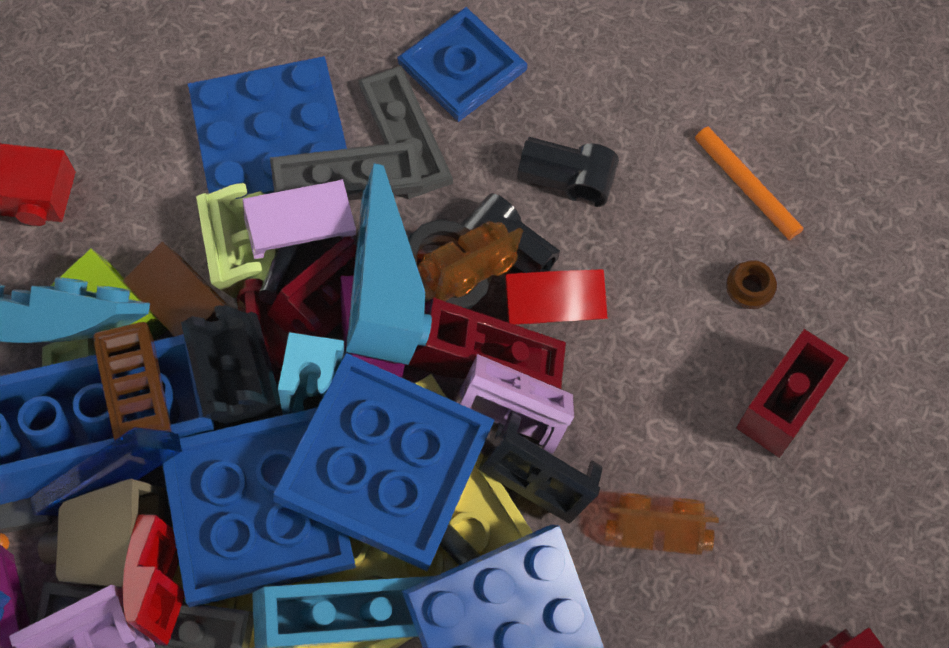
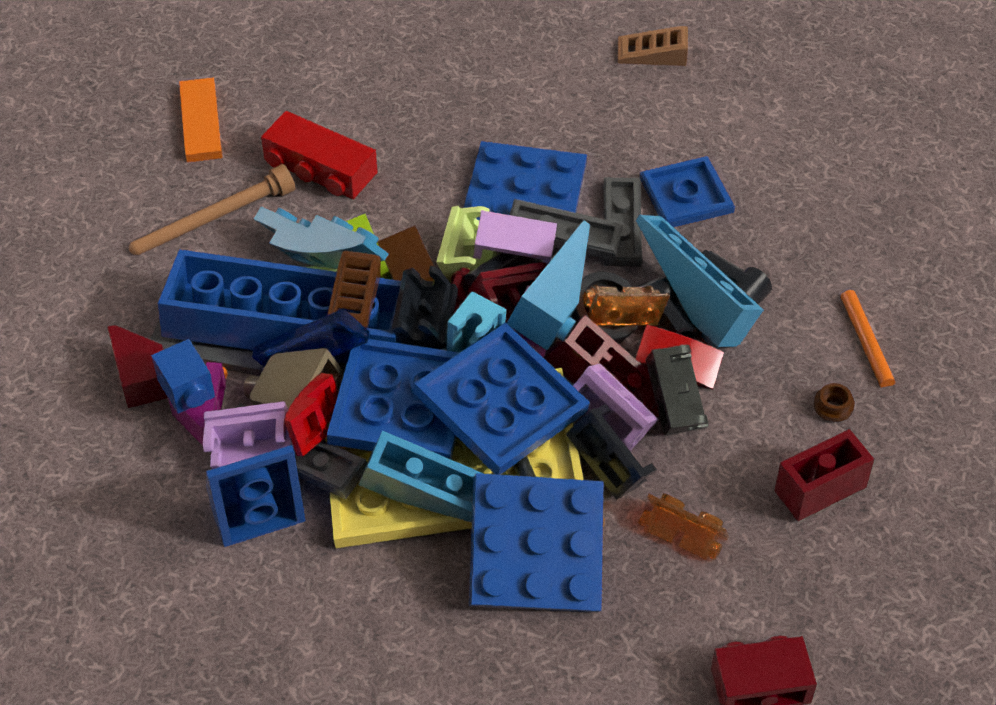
camera: 25 degrees right, 15 degrees down
(552, 199) = (706, 293): none -> dark azure slope
(575, 348) = (676, 390): none -> pearl dark grey hinge

